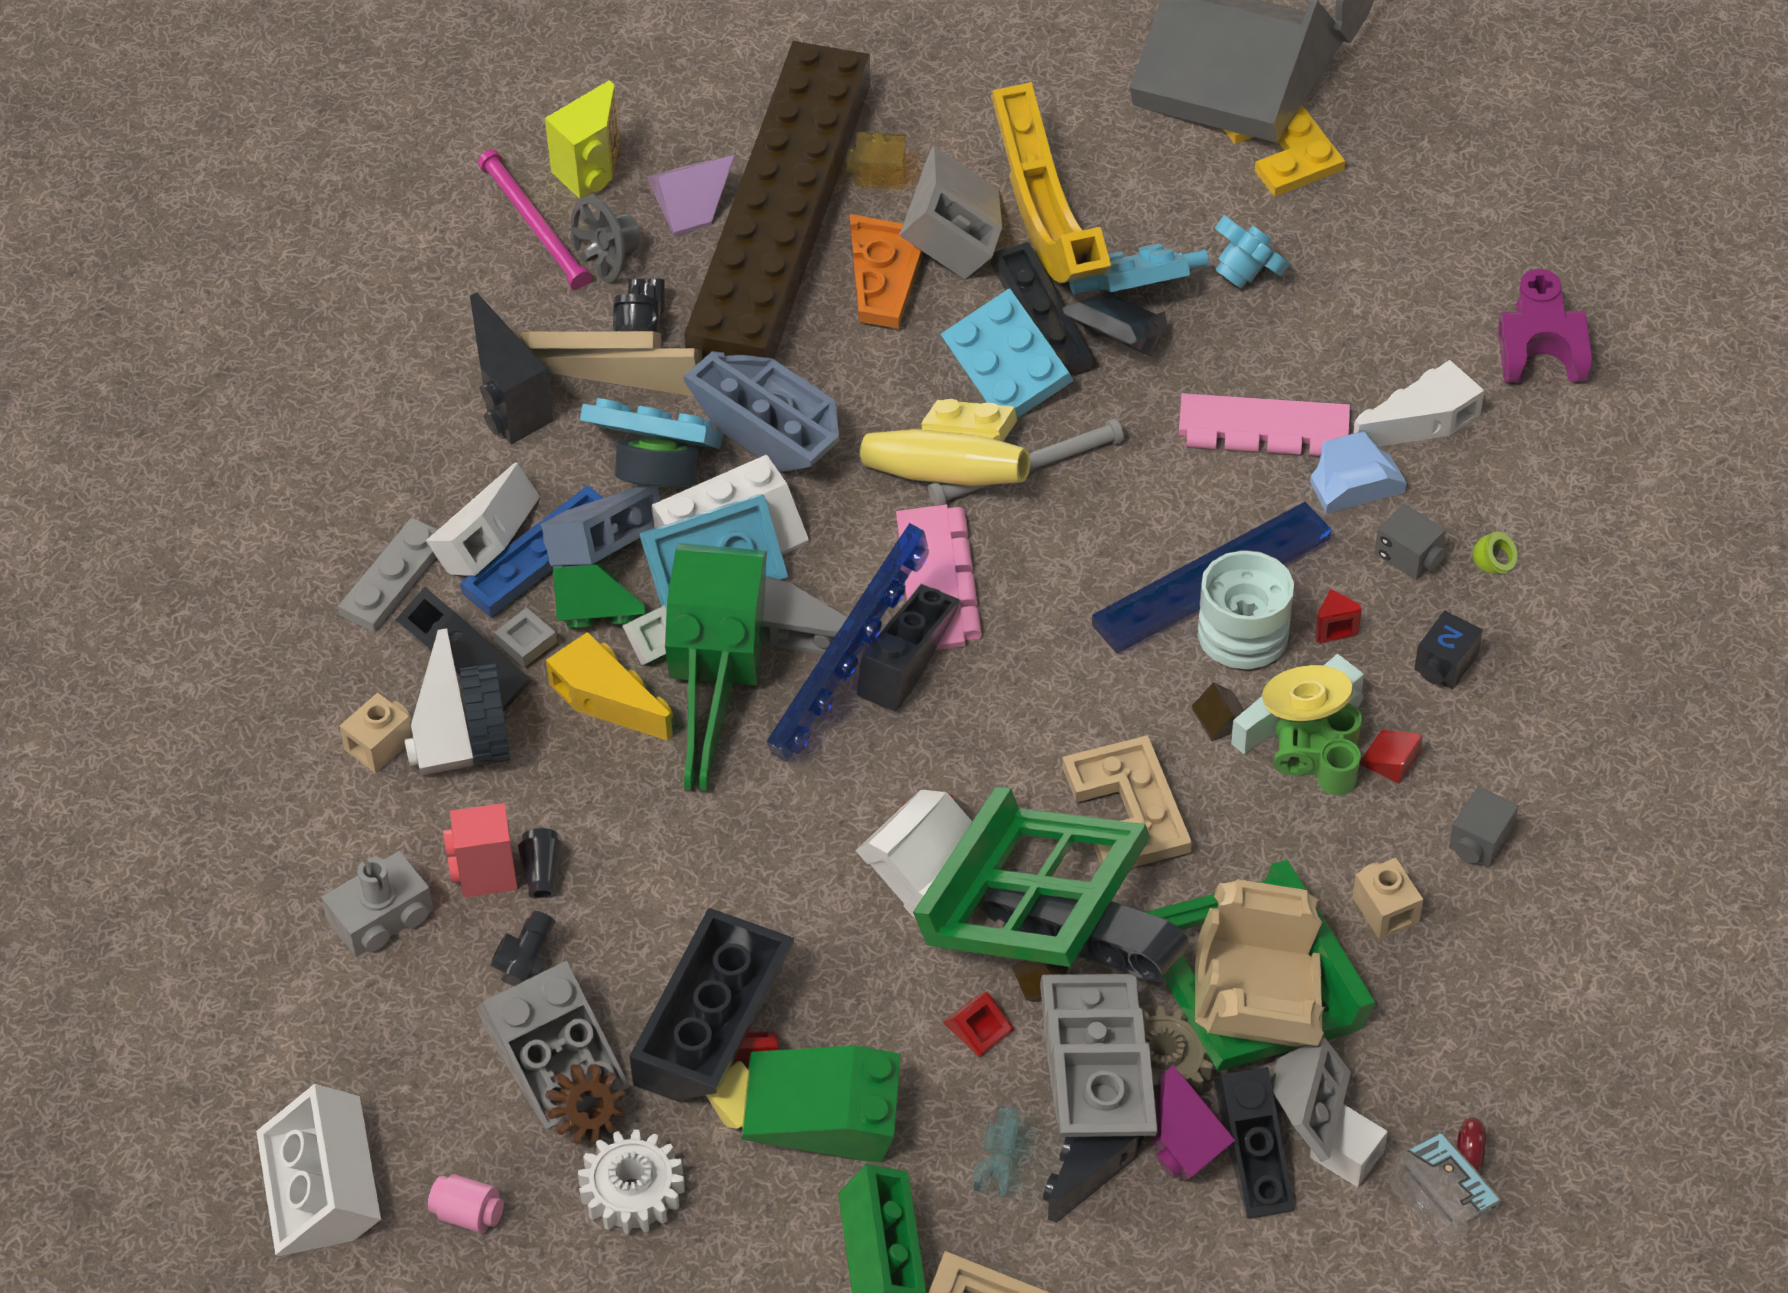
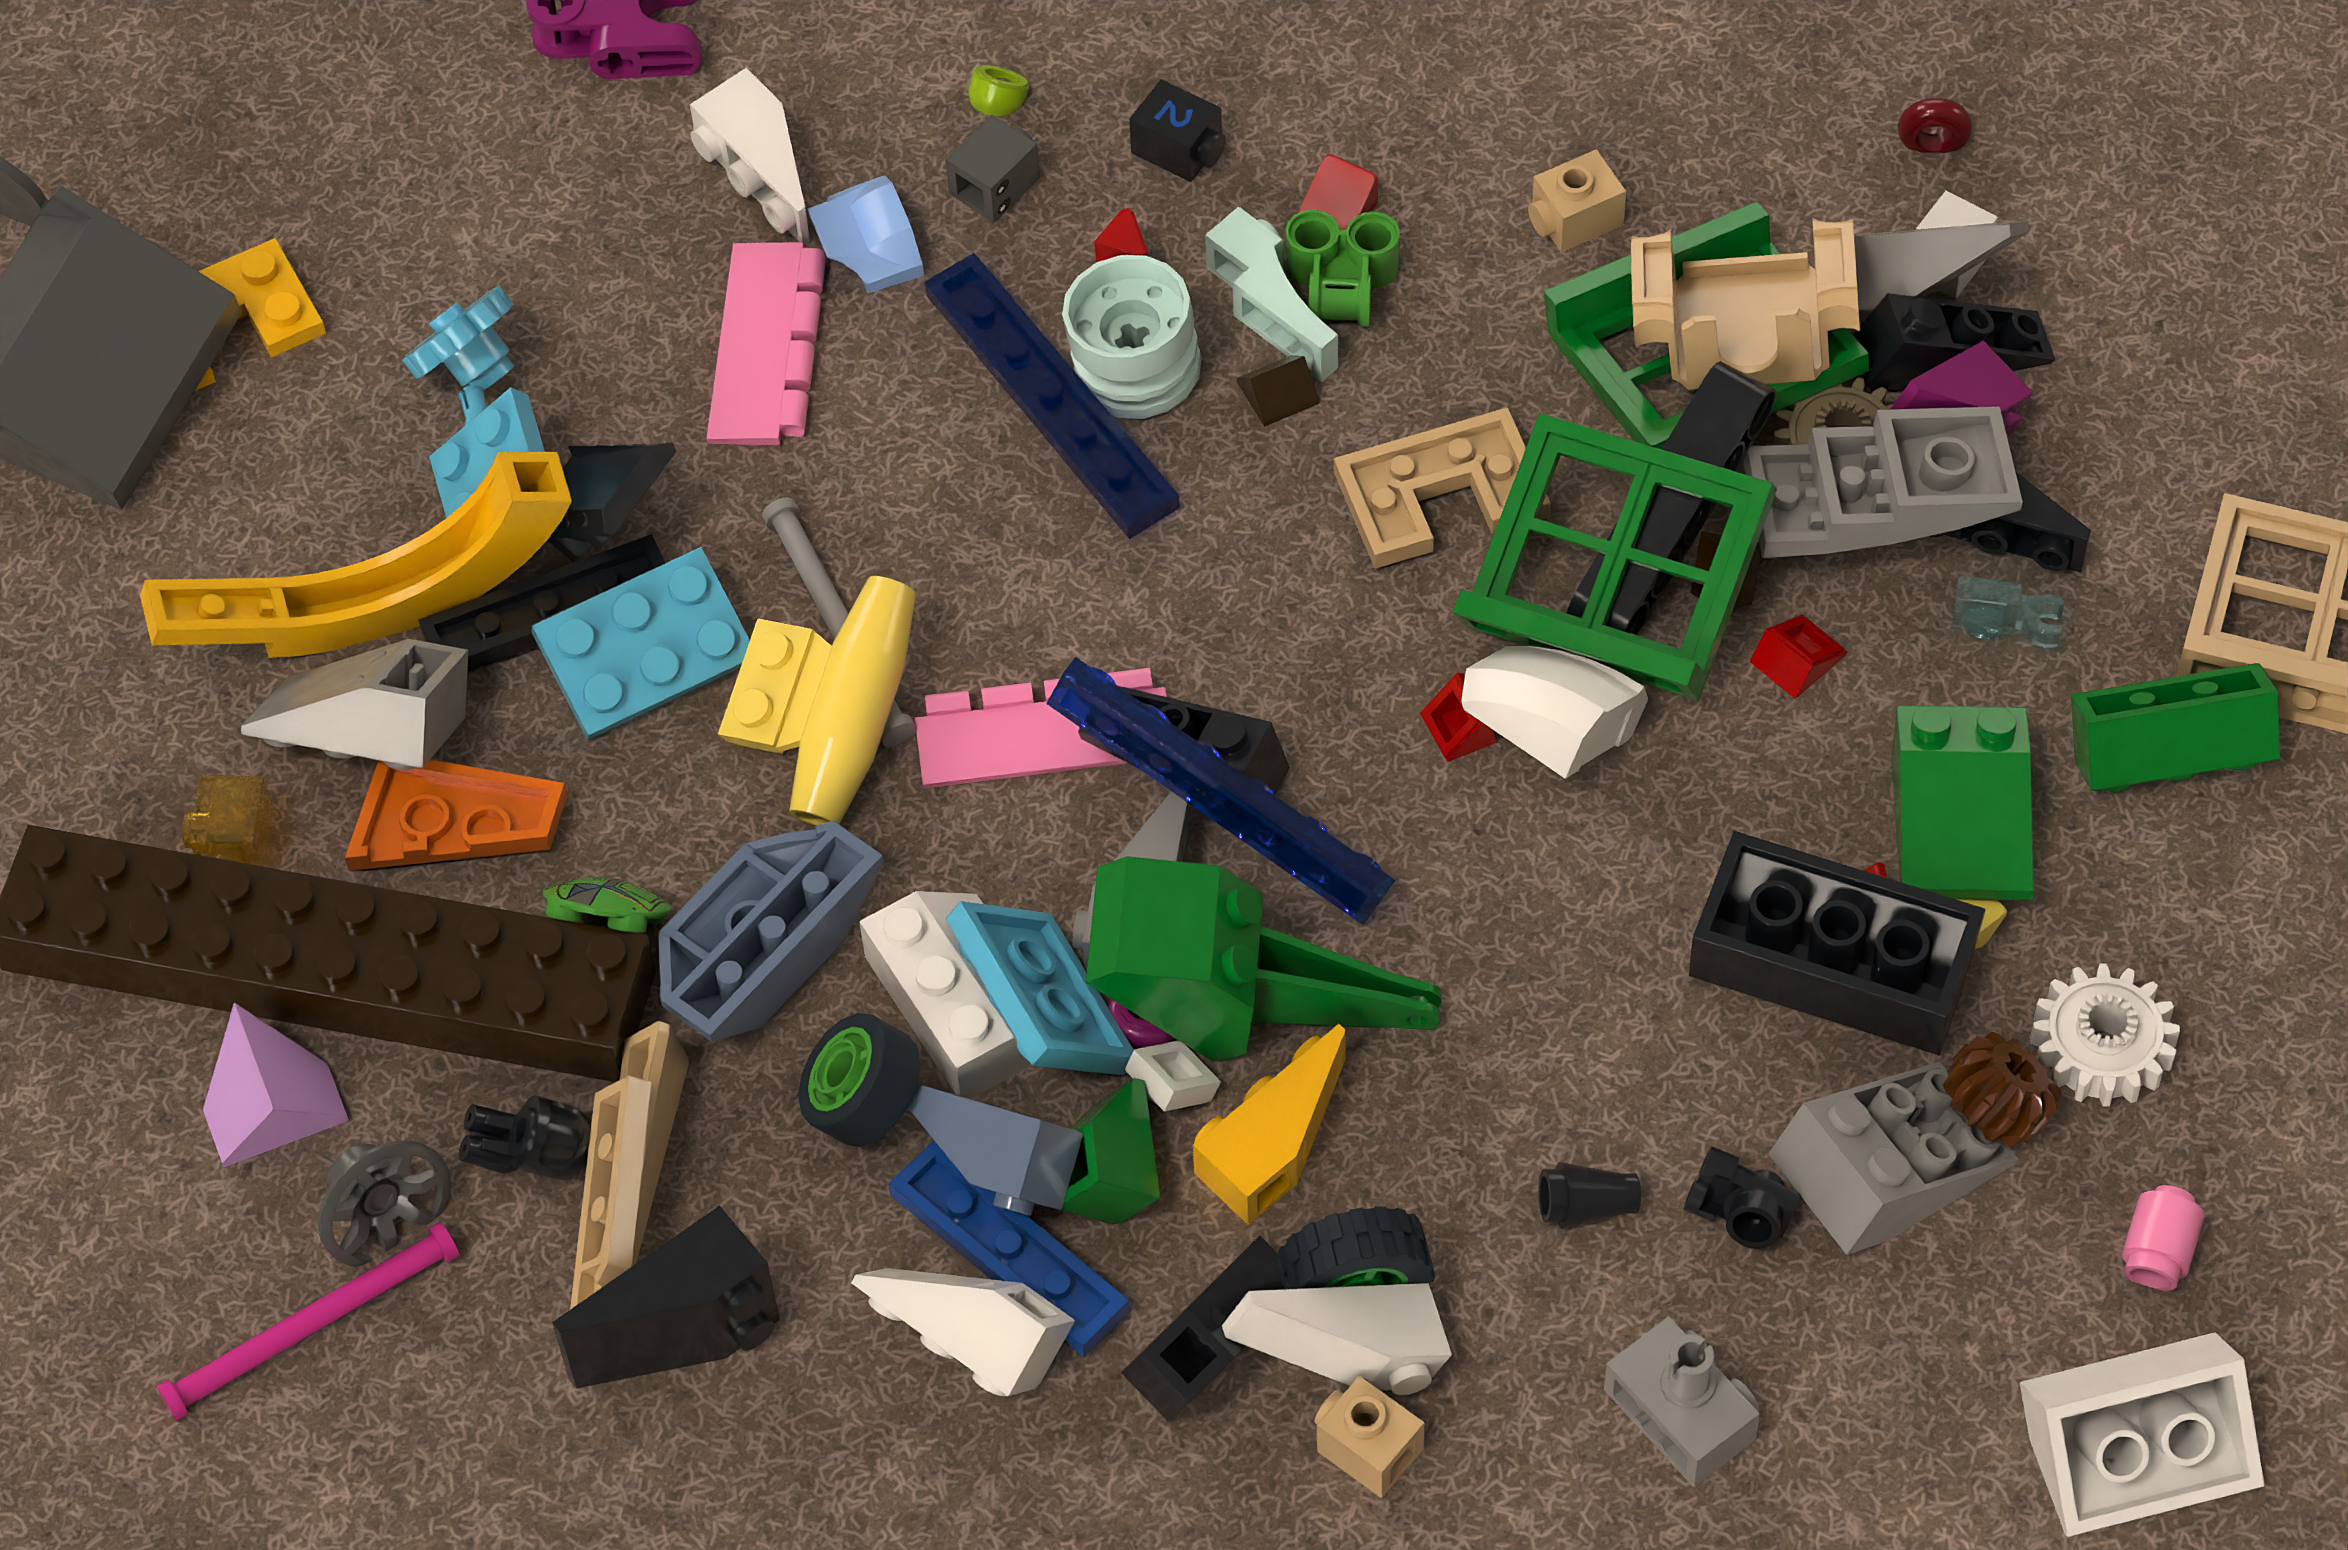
camera: 90 degrees left, 5 degrees up
(389, 577) = (1049, 1459): light grey plate -> none
(480, 850) = (1600, 1248): coral brick -> none
(525, 637) = (1176, 1252): light grey plate -> none
(585, 141) = (180, 1223): neon yellow slope -> none
(651, 423) = (787, 1090): medium azure plate -> none
(801, 337) = (623, 903): none -> bright green dish
(1307, 693) = (1279, 237): light yellow dish -> none
(1441, 1188) = (2007, 149): clear panel -> none
(1483, 827) = (1461, 100): dark grey brick -> none

